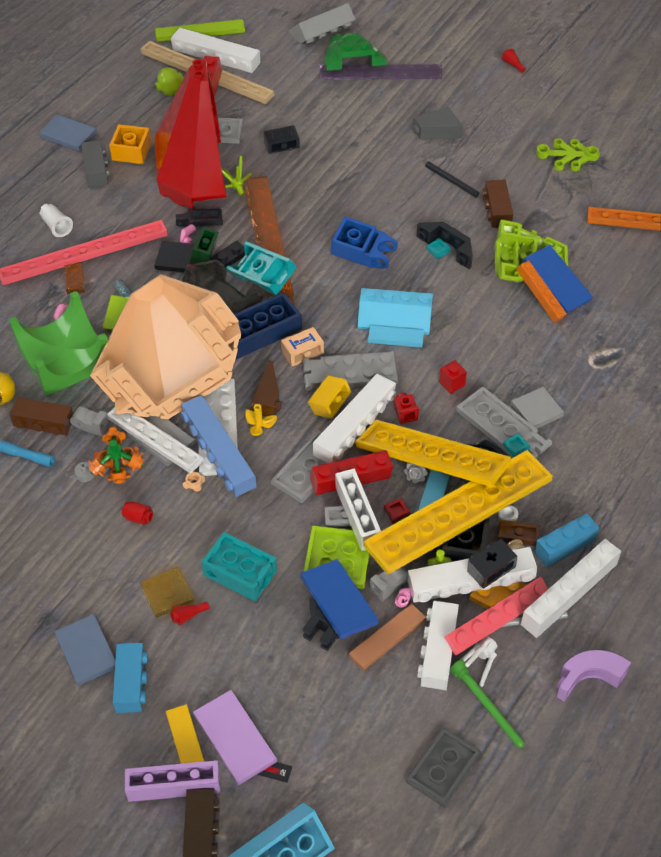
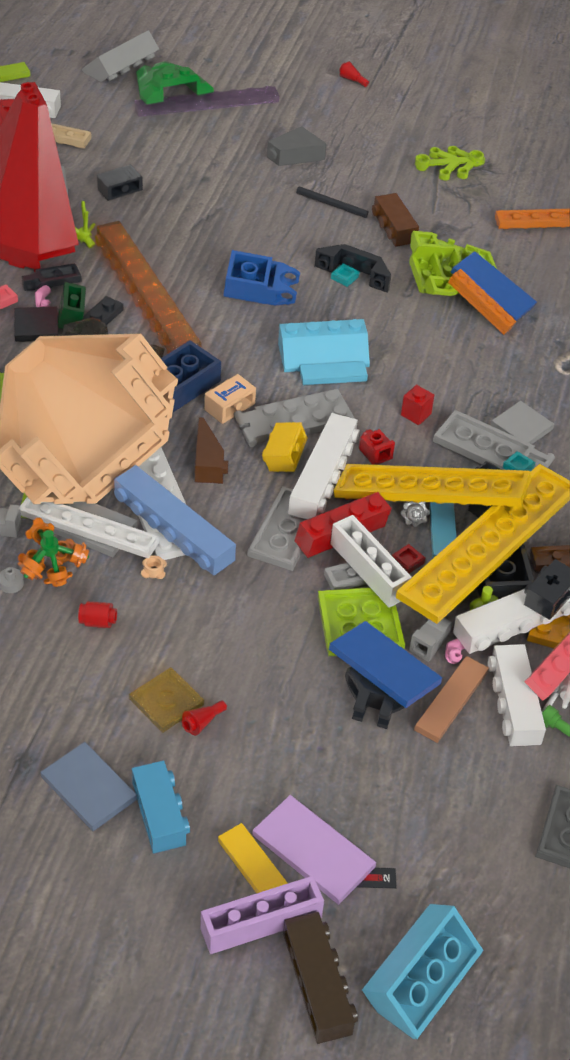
camera: 20 degrees left, 5 degrees down
(239, 566) = (249, 651): teal piece -> none
(255, 418) = (208, 487): yellow plant -> none
(271, 273) = (169, 319): teal piece -> none
(509, 513) = (538, 539): white tile -> none

